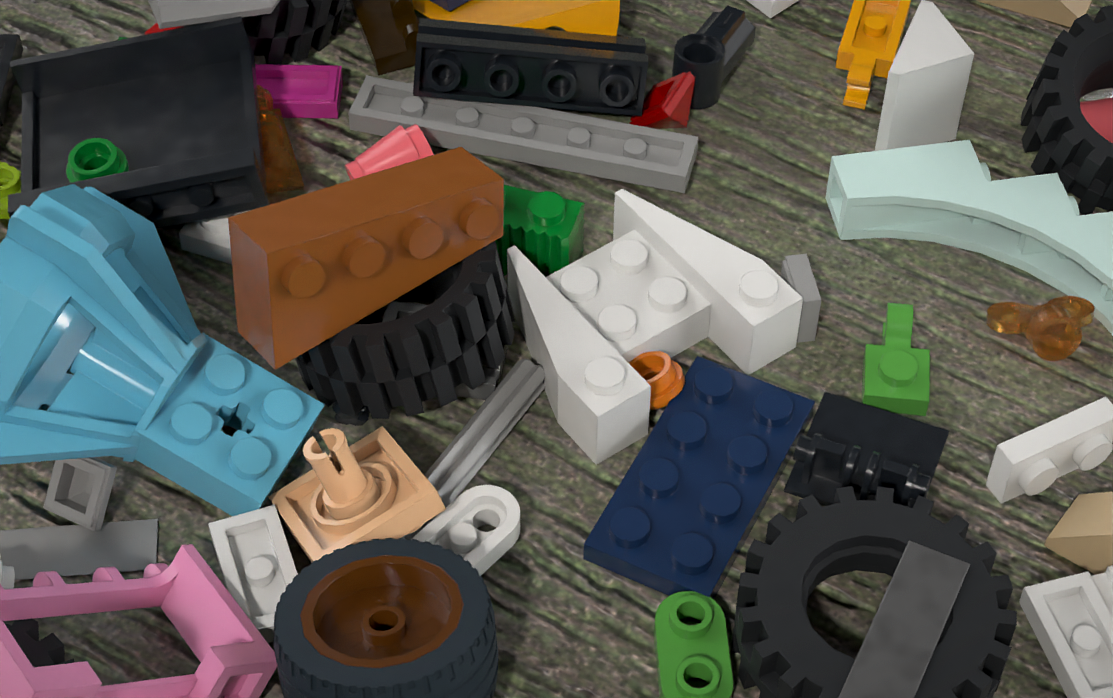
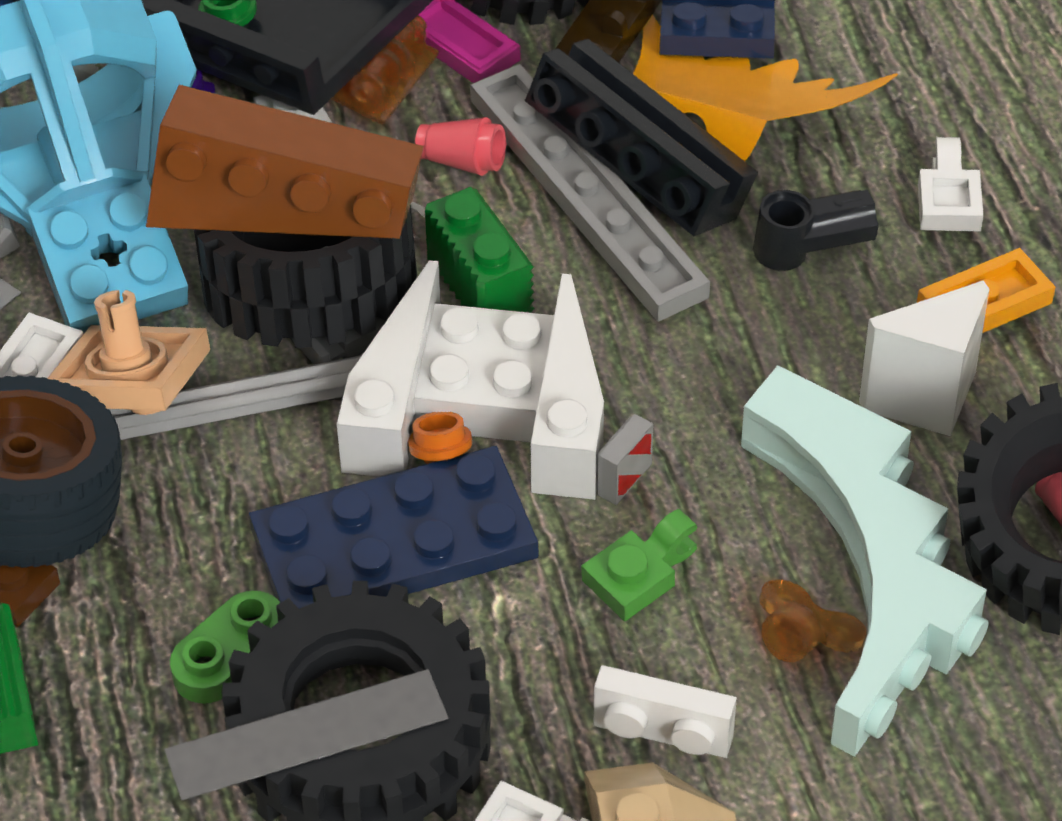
camera: 45 degrees right, 0 degrees up
(458, 526) = (178, 449): white plate -> none
(667, 103) = (729, 243): red slope -> none
(864, 450) = (524, 612): black hinge -> none

